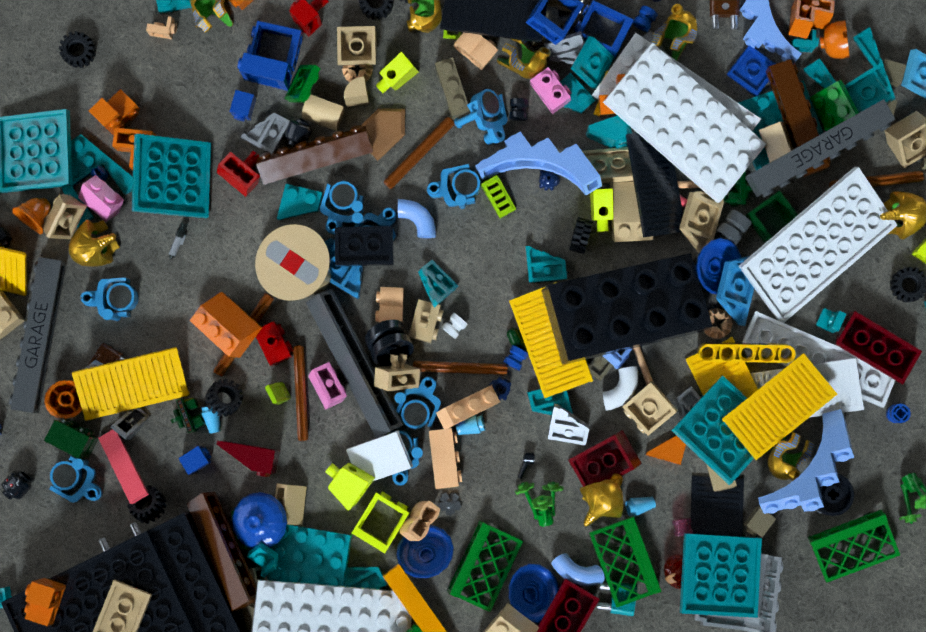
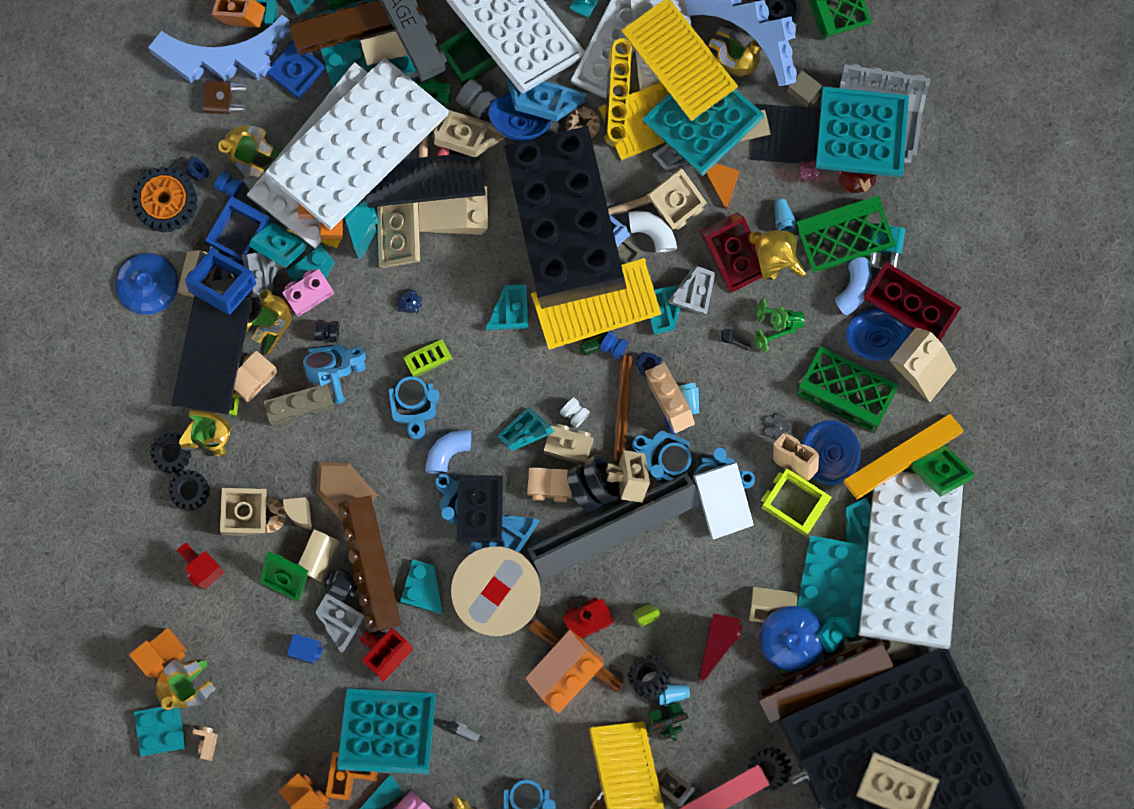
camera: 85 degrees left, 5 degrees down
(195, 459) = (719, 712): blue brick -> none
(265, 71) = (267, 619): blue window -> none
(295, 46) = (223, 583): blue window -> none
(300, 391) = (646, 591): dark orange axle -> none
(327, 385) = (639, 557): bright pink brick -> none
(344, 198) = (420, 534): dark azure piece -> none
(348, 483) = (751, 536): neon yellow torso -> none
(402, 68) = (271, 459): neon yellow torso -> none
(419, 152) = (371, 446): dark orange axle -> none
(444, 458) = (726, 428): light nougat brick -> none
(543, 155) = (384, 302): light blue arch -> none
(581, 235) = (477, 266): black tyre -> none
(602, 198) = (438, 245): neon yellow torso -> none

